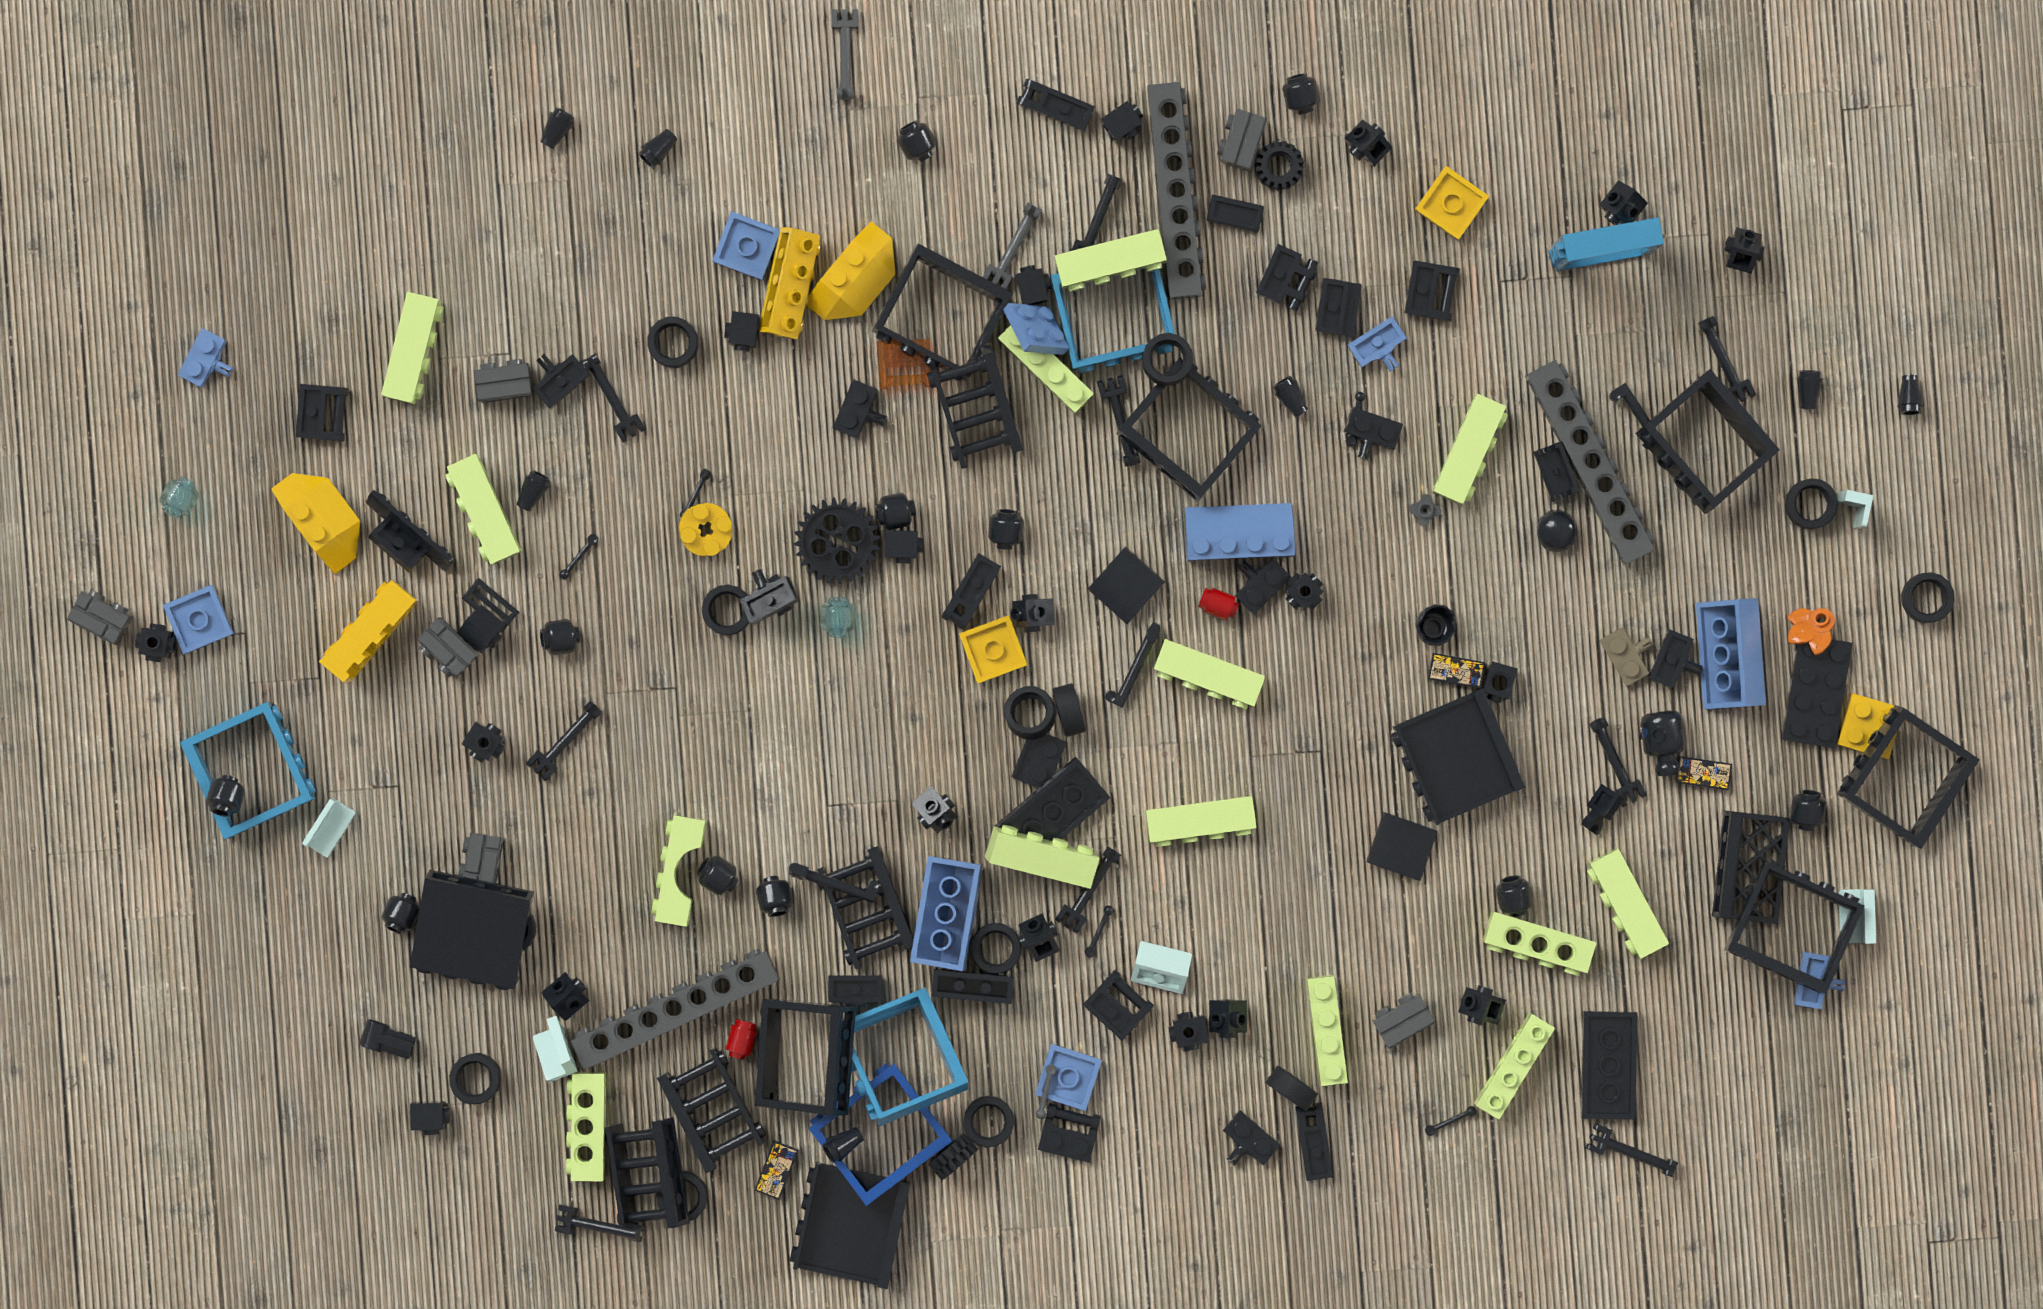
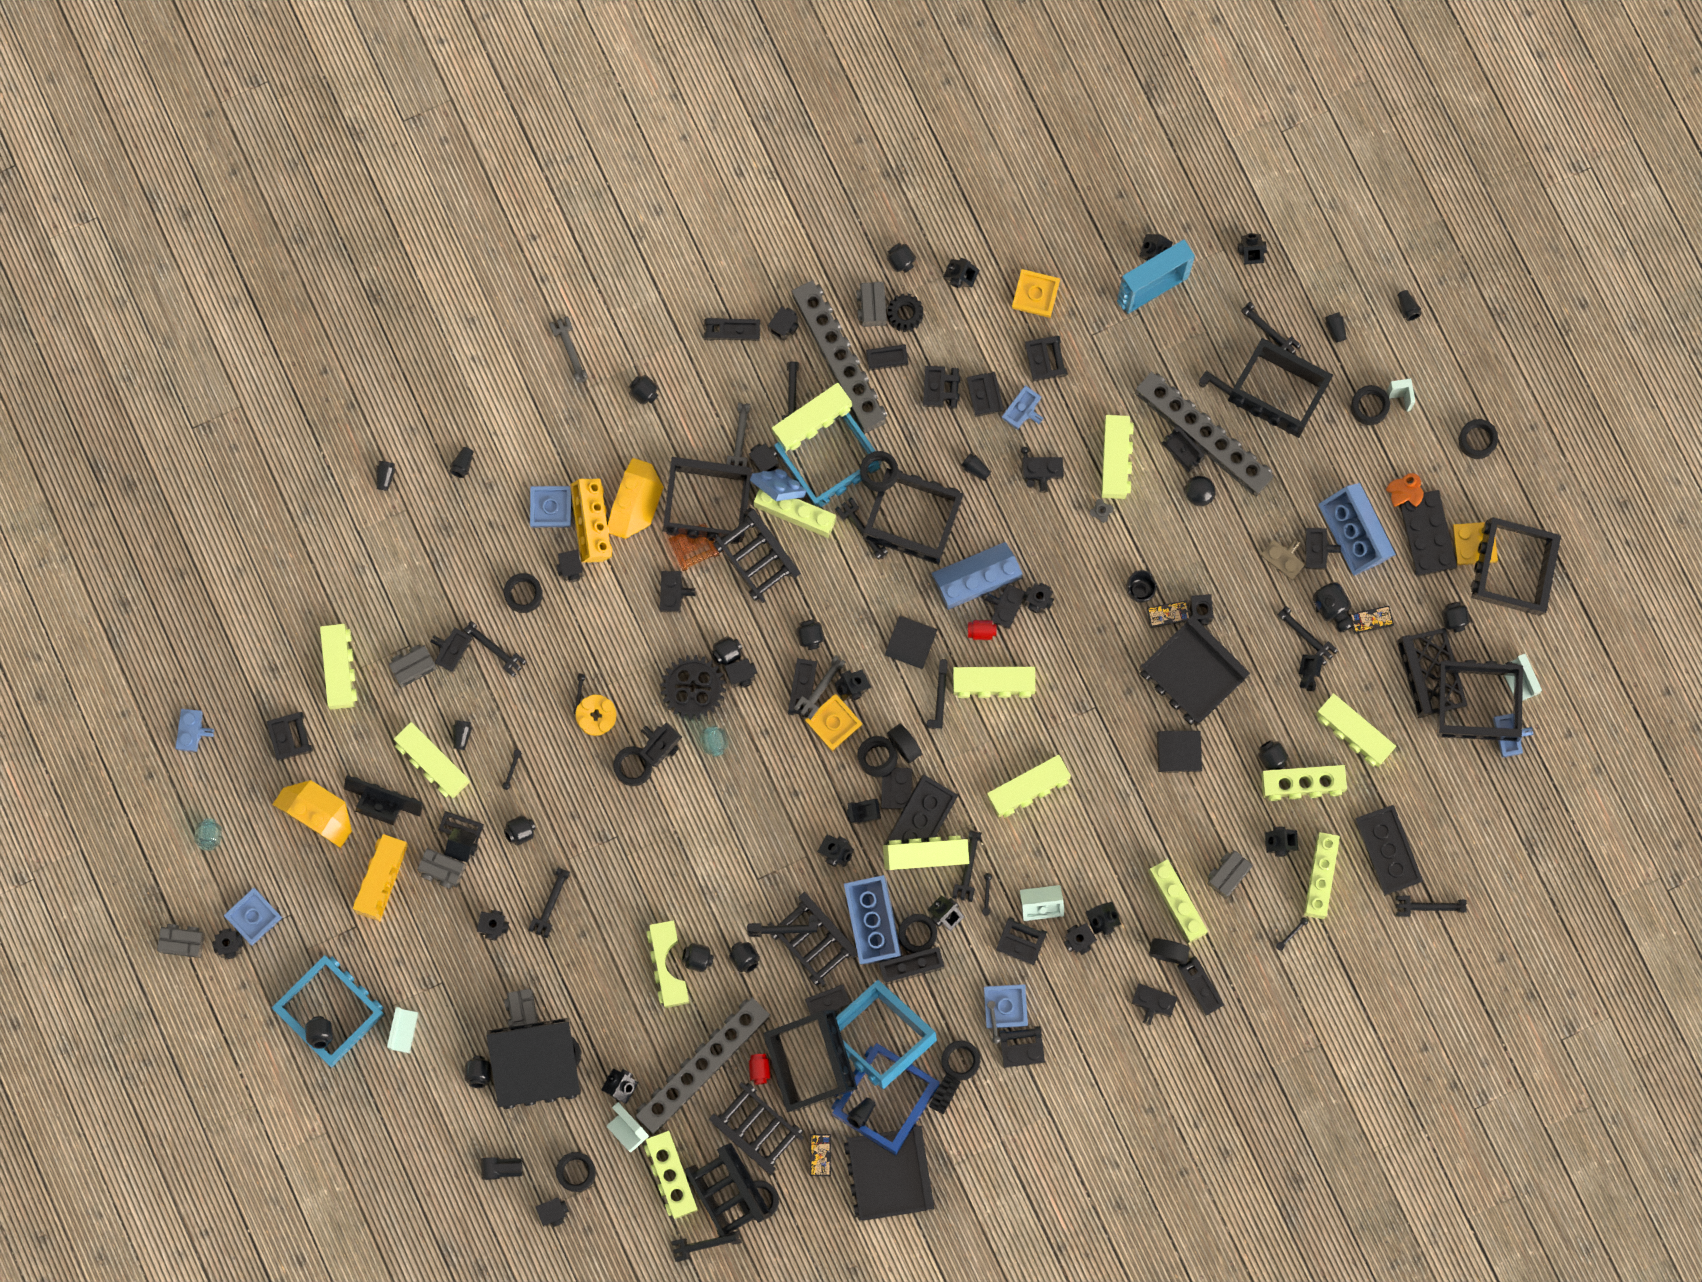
camera: 25 degrees left, 10 degrees down
(987, 773) = (863, 811): none -> black bracket
(1024, 579) = (810, 703): none -> dark grey hinge

